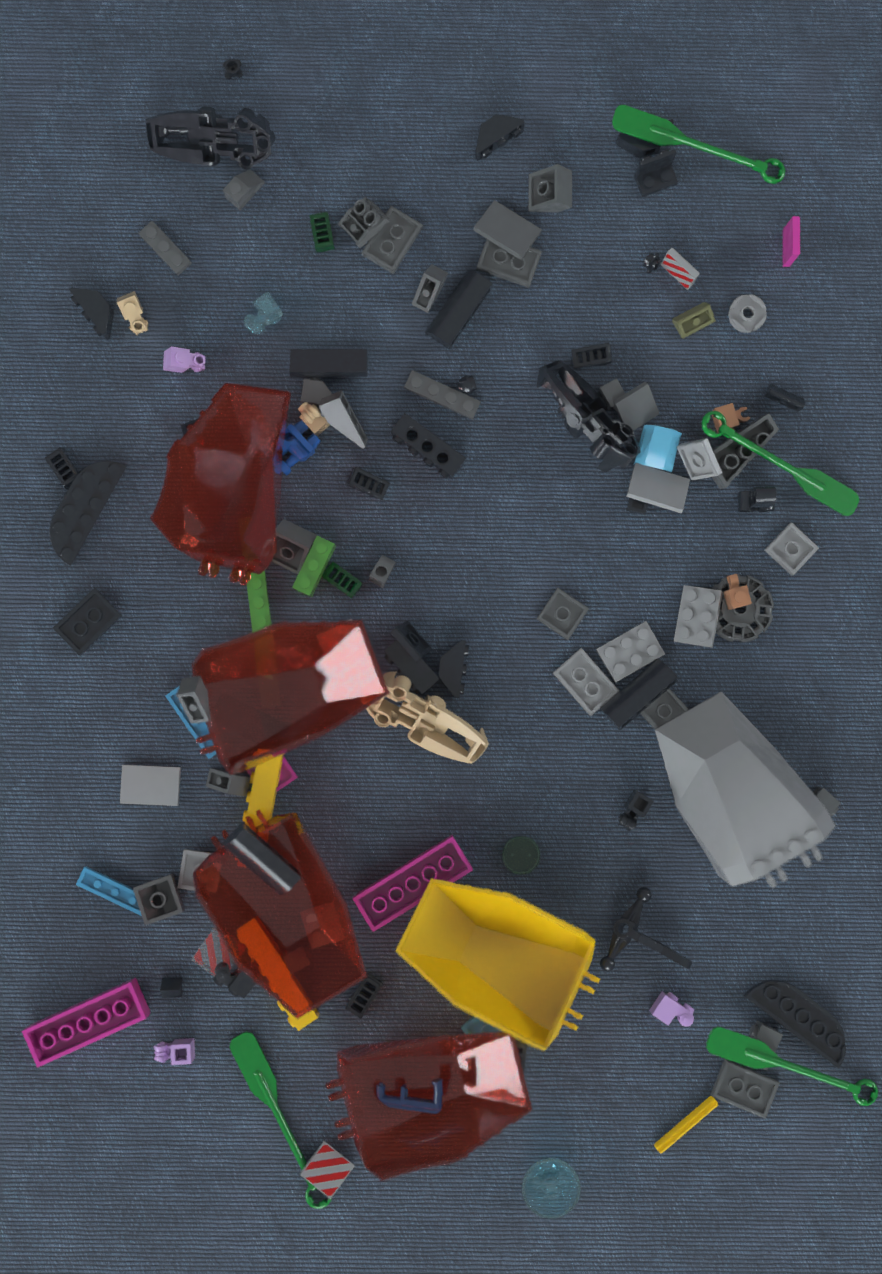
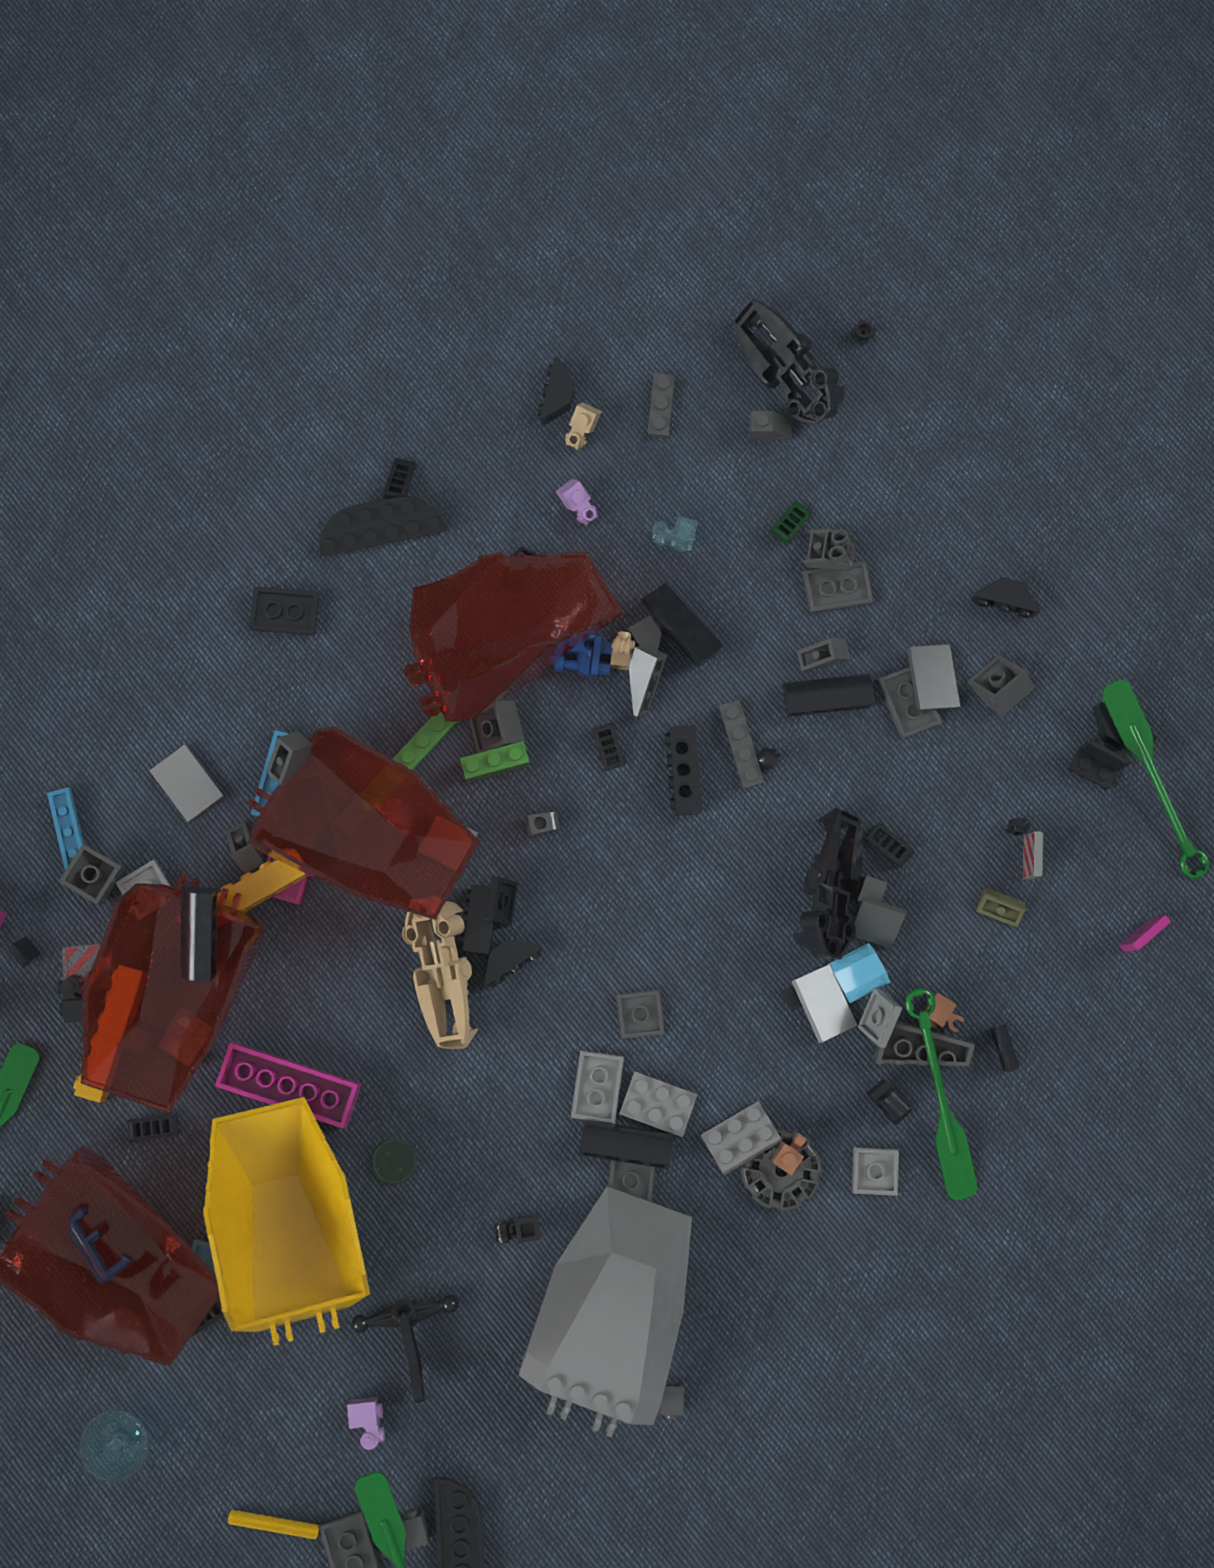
camera: 55 degrees right, 5 degrees down
(358, 584) = (499, 814): dark green slope -> none
(745, 324) = (1036, 952): light grey tile -> none

